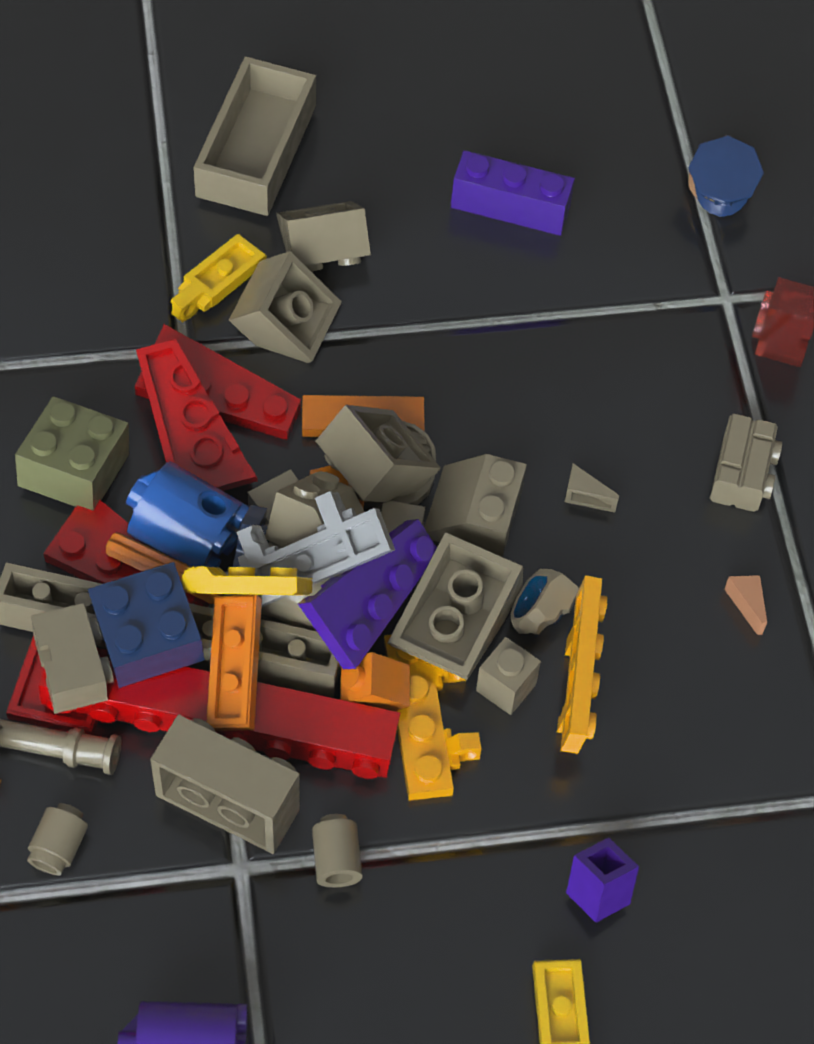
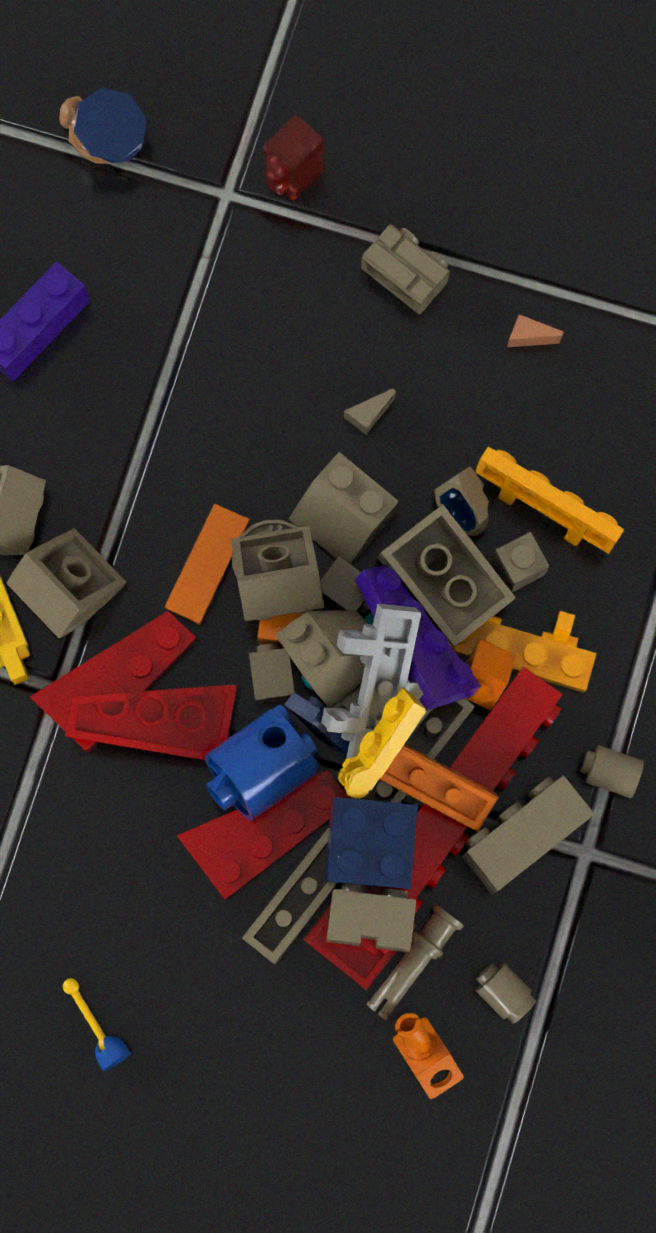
camera: 60 degrees left, 20 degrees up
(72, 454) = (140, 835): olive brick -> none
(145, 558) = (294, 804): orange axle -> none

